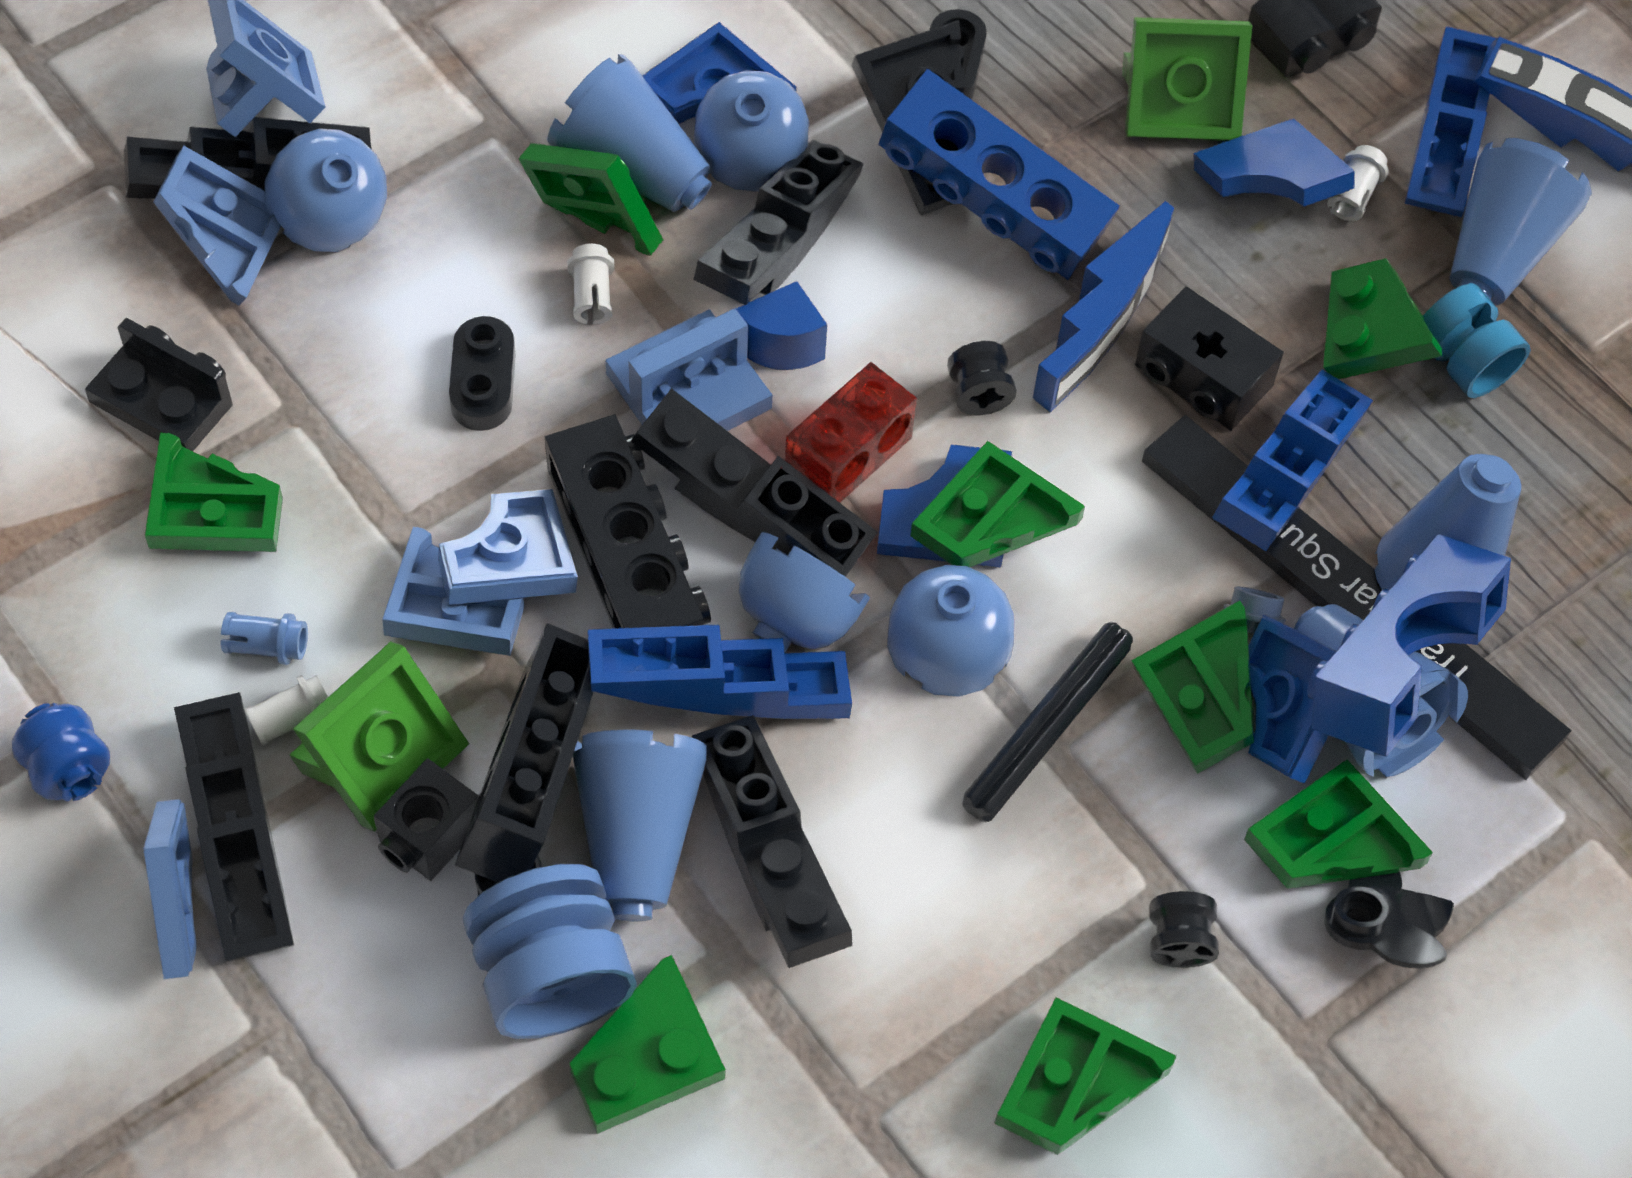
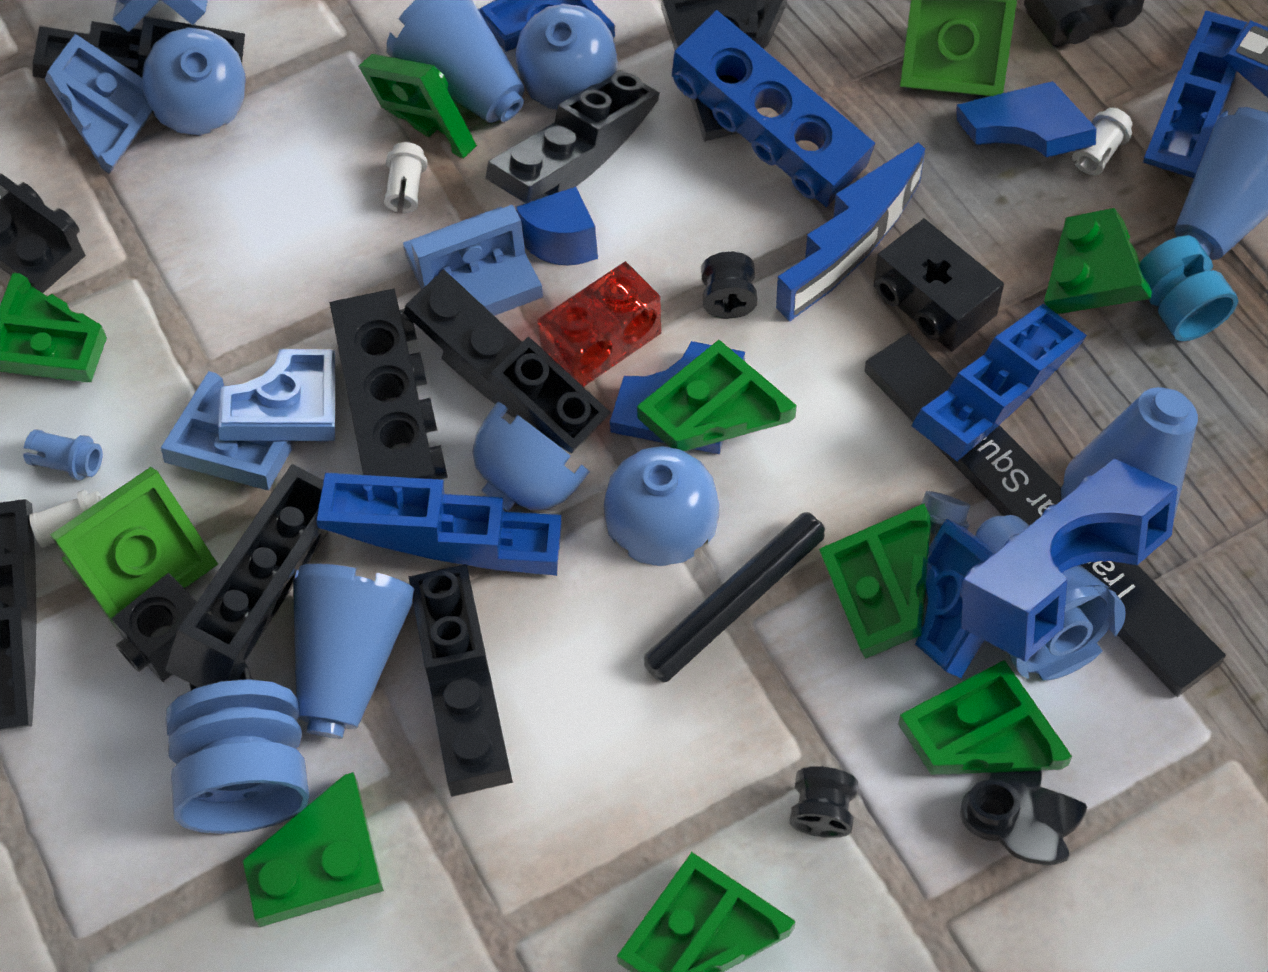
camera: 15 degrees right, 0 degrees up
(482, 368) = (297, 240): black plate -> none

